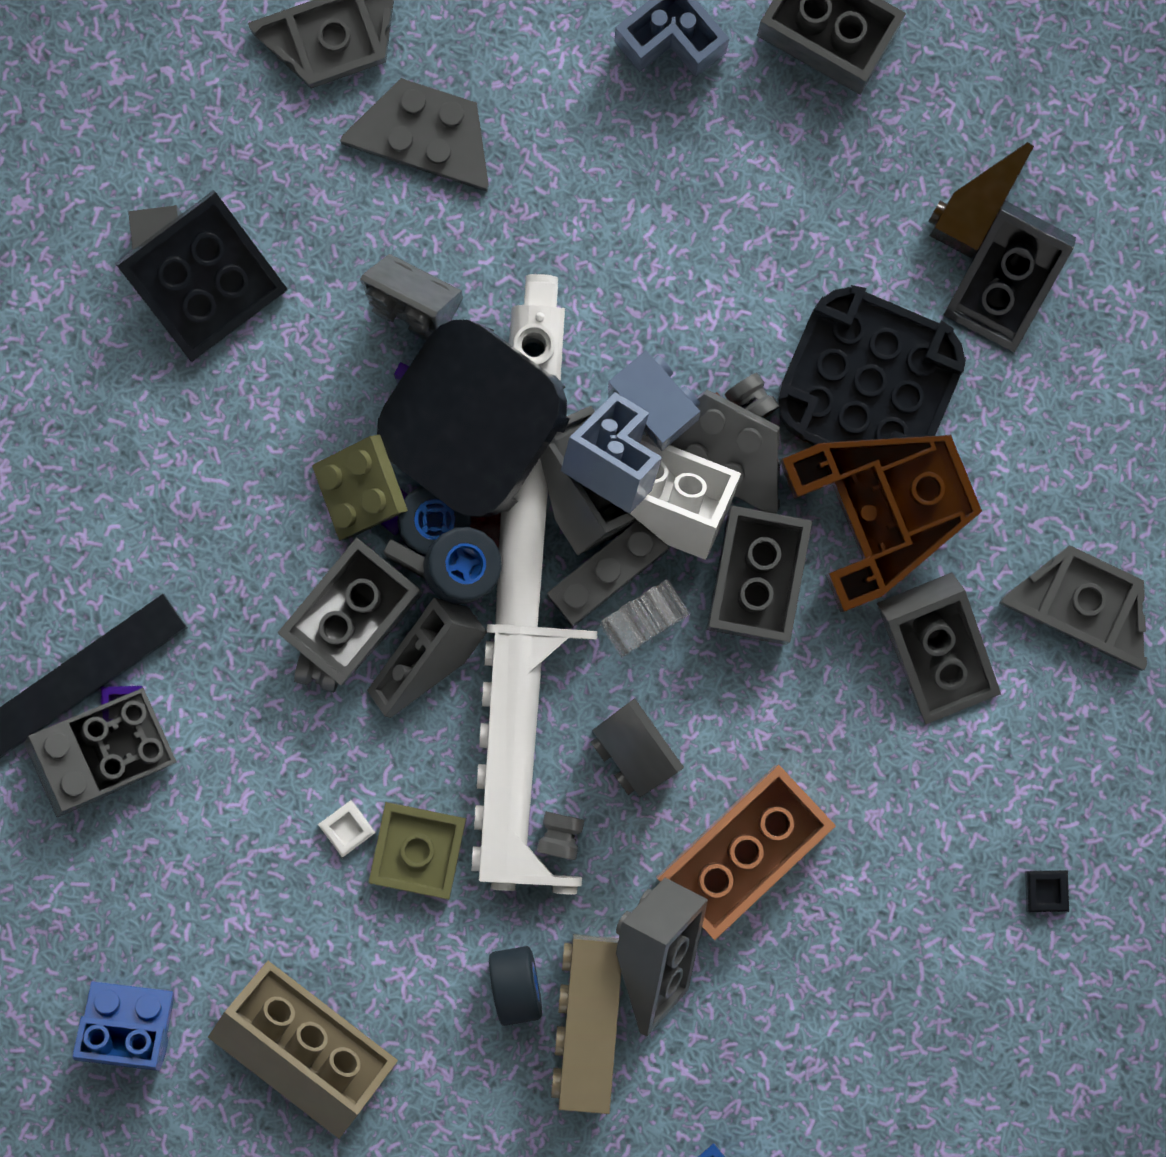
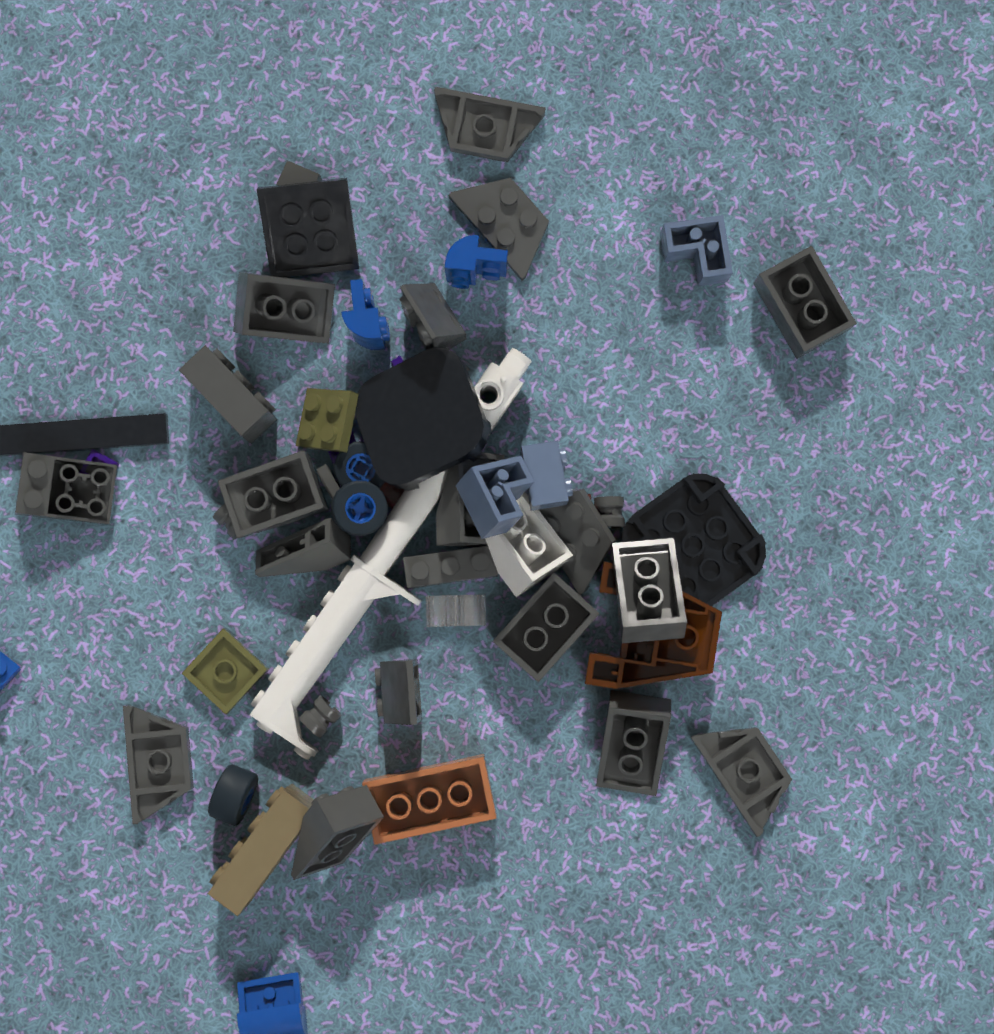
camera: 35 degrees right, 0 degrees up
(227, 388) = (283, 308): none -> dark grey slope
(227, 523) = (229, 393): none -> dark grey brick
(302, 1049) = (77, 752): dark tan slope -> none
(337, 349) = (364, 321): none -> blue brick
(346, 828) = (190, 630): white tile -> none
(401, 1003) = (156, 761): none -> dark grey wing
(414, 201) = (467, 260): none -> blue brick
(854, 460) = (648, 591): none -> dark grey slope
(974, 206) = (826, 473): dark brown slope -> none
(1010, 276) = (823, 531): black slope -> none
(1047, 891) = (609, 940): black tile -> none

